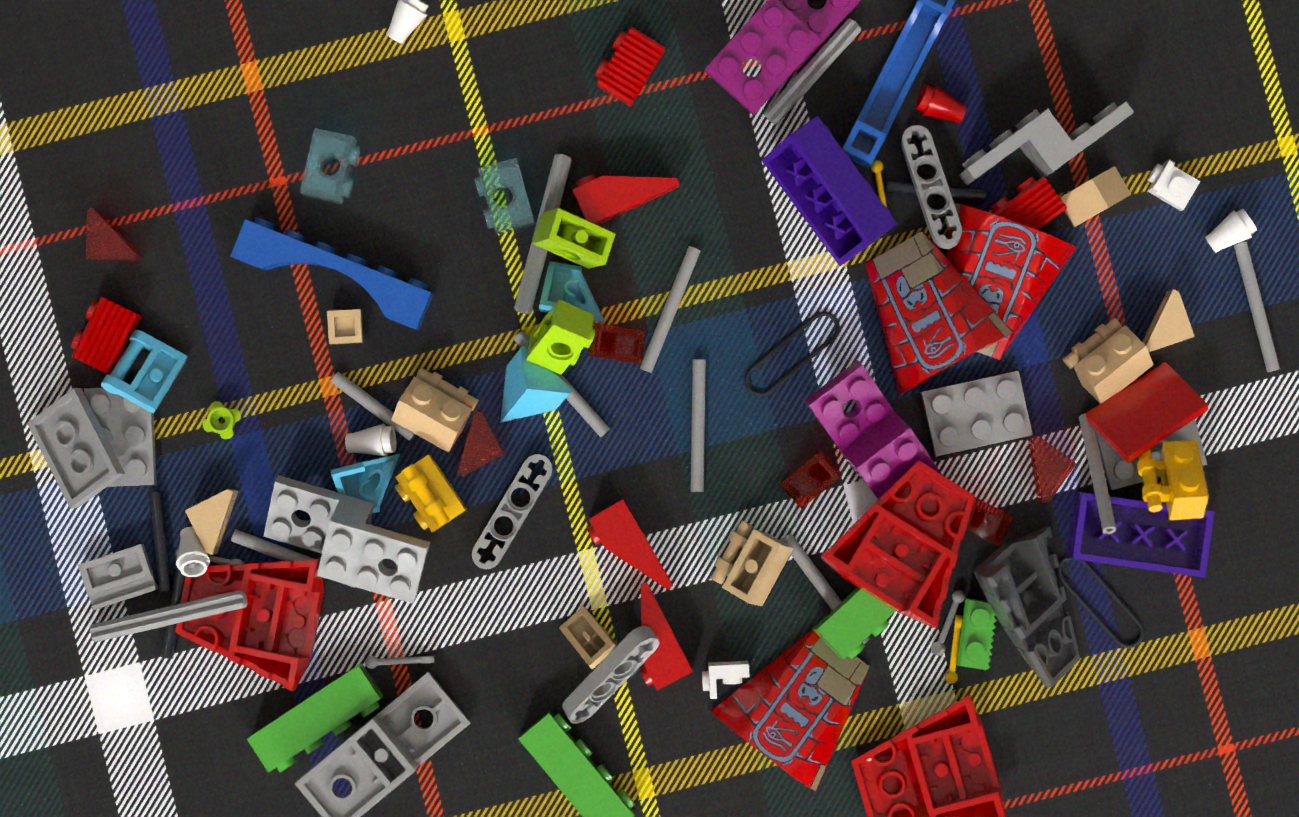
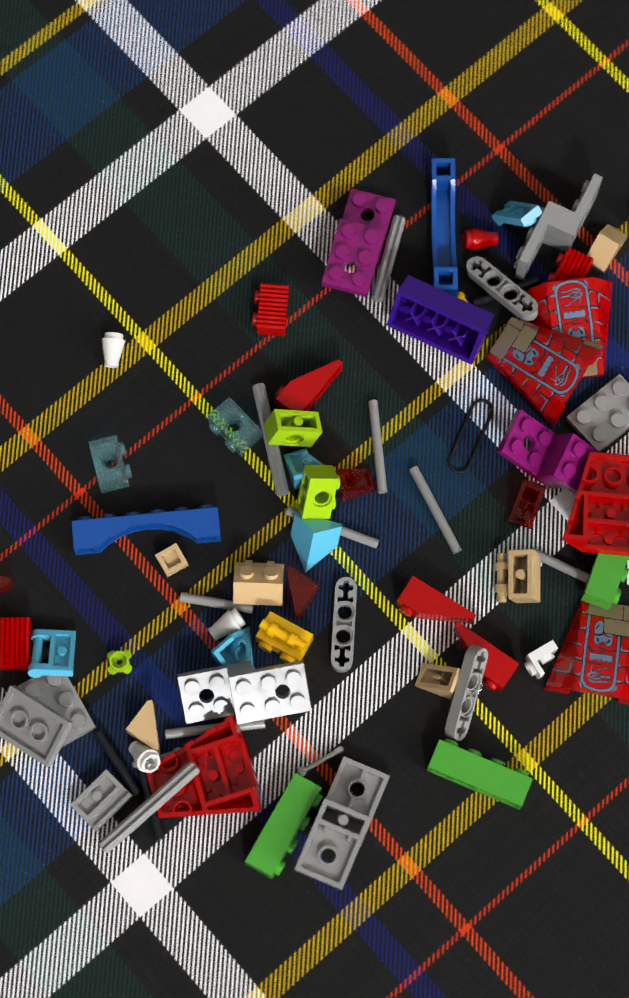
camera: 20 degrees left, 15 degrees down
(1002, 102) = (517, 214): none -> medium azure plate

